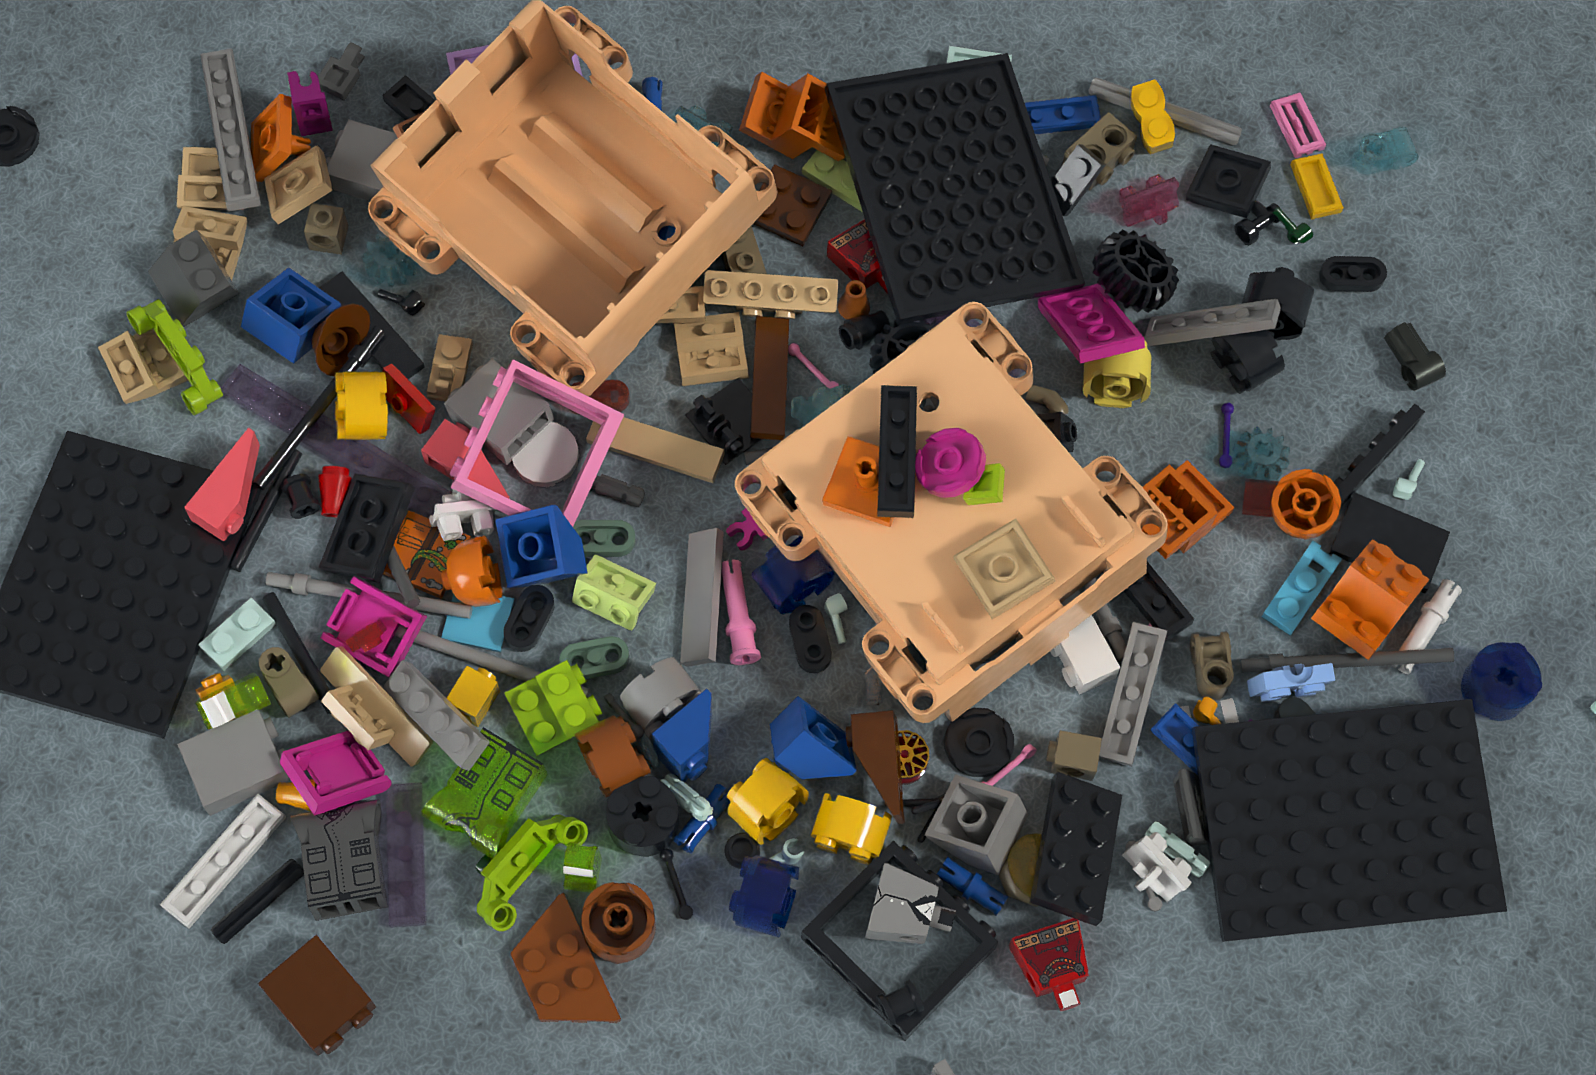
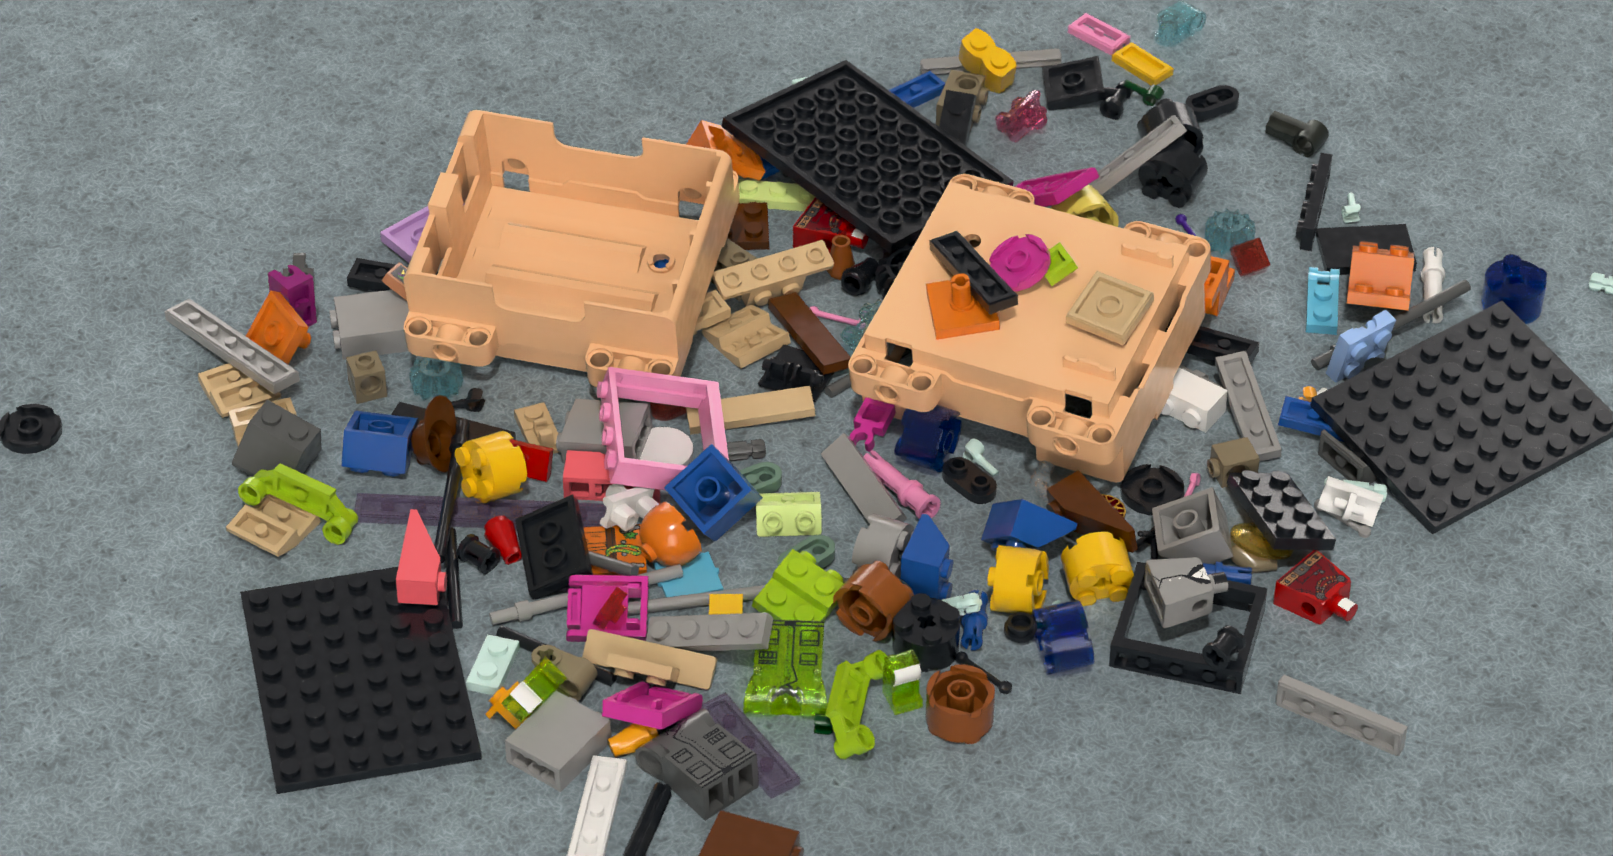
camera: 25 degrees left, 25 degrees down
(298, 184) = (323, 353): tan plate -> none
(528, 619) = (732, 555): black plate -> none
(561, 970) = (936, 763): dark orange wing -> none
(1135, 271) = (1045, 154): black gear -> none
(1212, 658) = (1292, 368): dark tan piece -> none
(1305, 504) = (1288, 241): orange cylinder -> none

